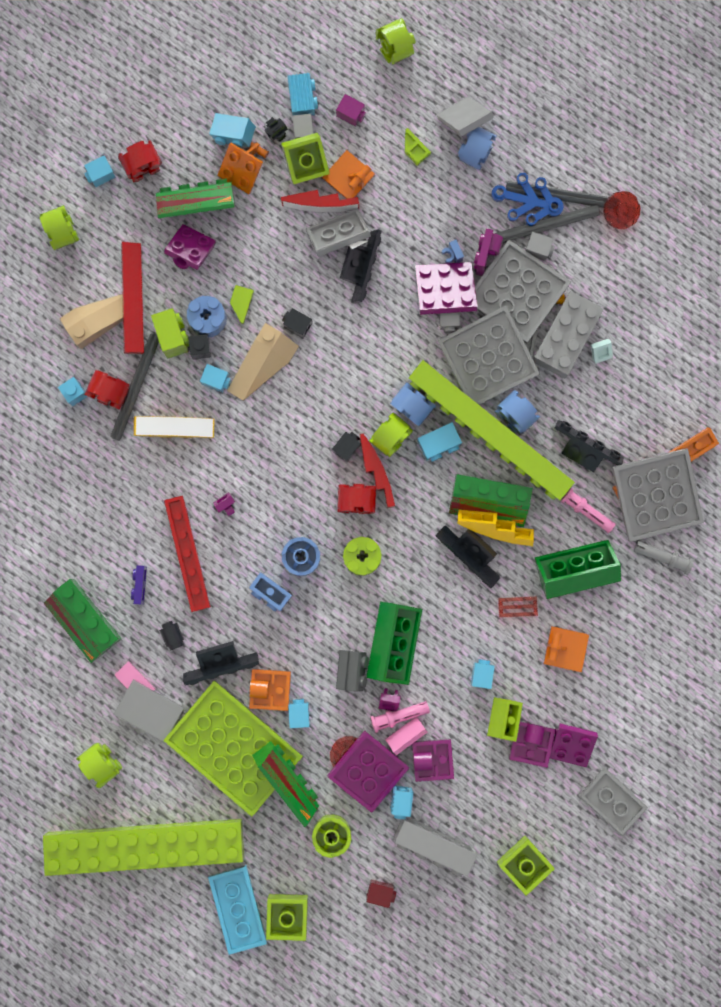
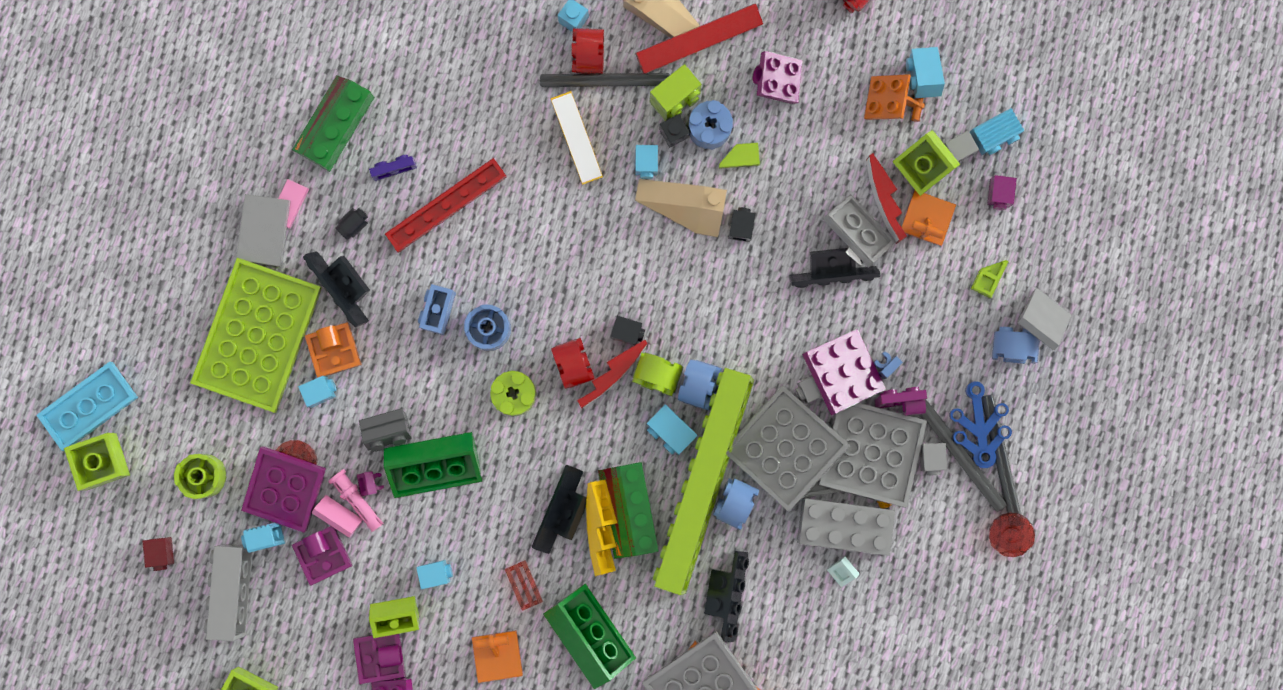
camera: 70 degrees right, 0 degrees up
(98, 764) = (185, 199): lime brick -> none
(143, 847) = (117, 281): lime brick -> none
(195, 199) = (832, 62): green slope -> none
(225, 503) = (514, 224): magenta tile -> none
(276, 129) = (947, 119): black gear -> none
(286, 782) = (237, 405): green slope -> none
(395, 41) = (1099, 210): lime brick -> none
(581, 505) = (661, 613): bright pink pin -> none

